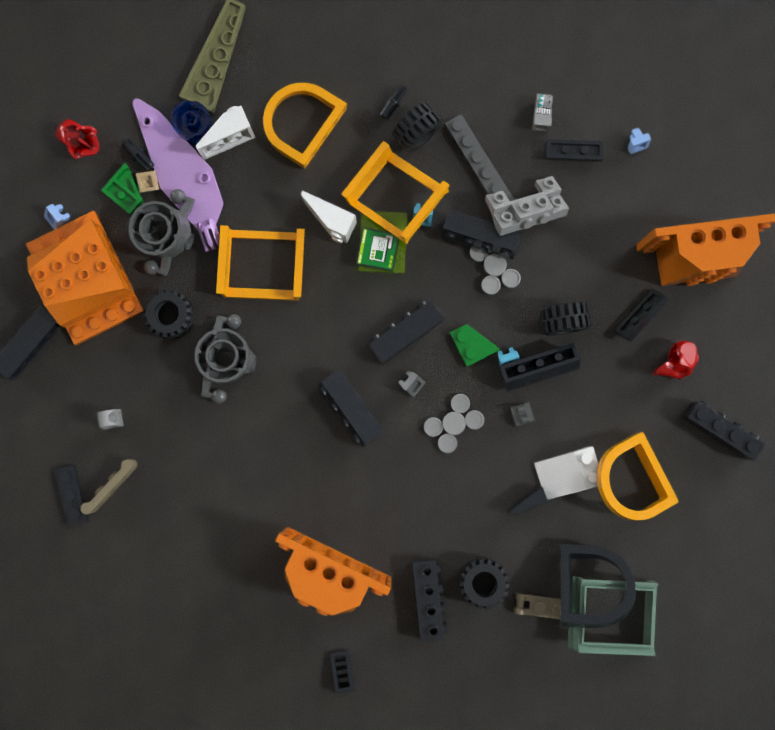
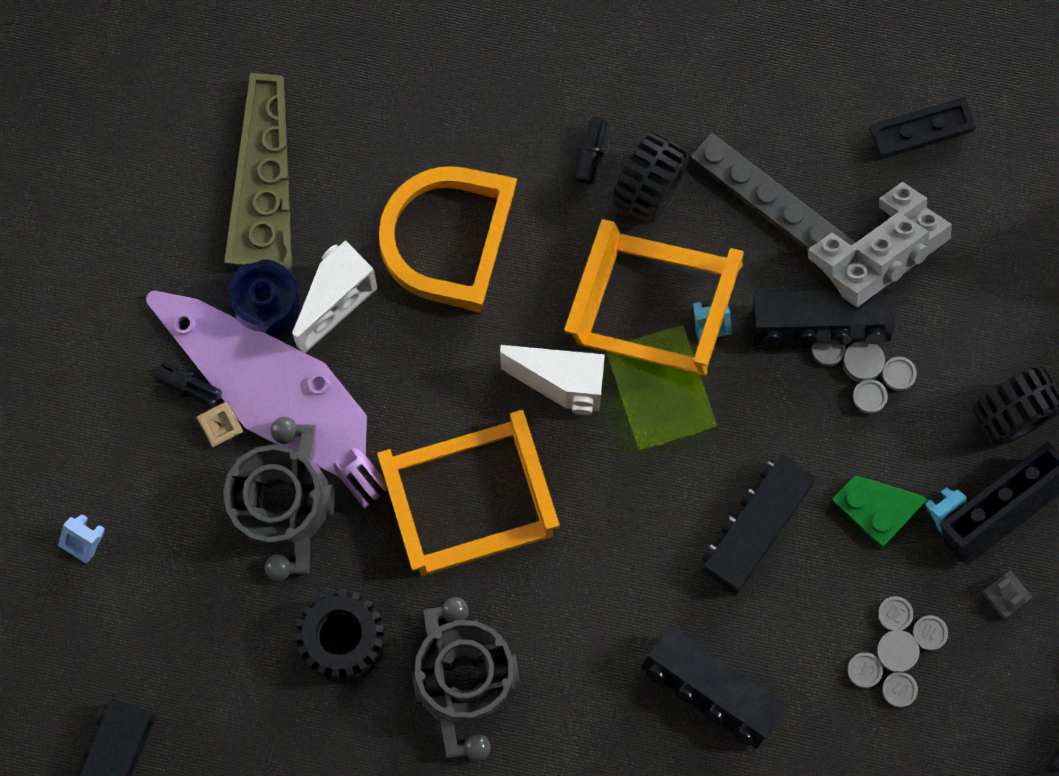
camera: 25 degrees left, 10 degrees down
(79, 139) = (79, 391): red head -> none
(82, 278) = (168, 625): orange wedge -> none
(123, 190) = (184, 453): green wing -> none
(377, 250) = (657, 403): tile -> none
(412, 384) = (803, 608): dark grey tile -> none
(542, 112) = (846, 85): light grey leg -> none
(638, 141) = (1021, 77): light blue tile -> none

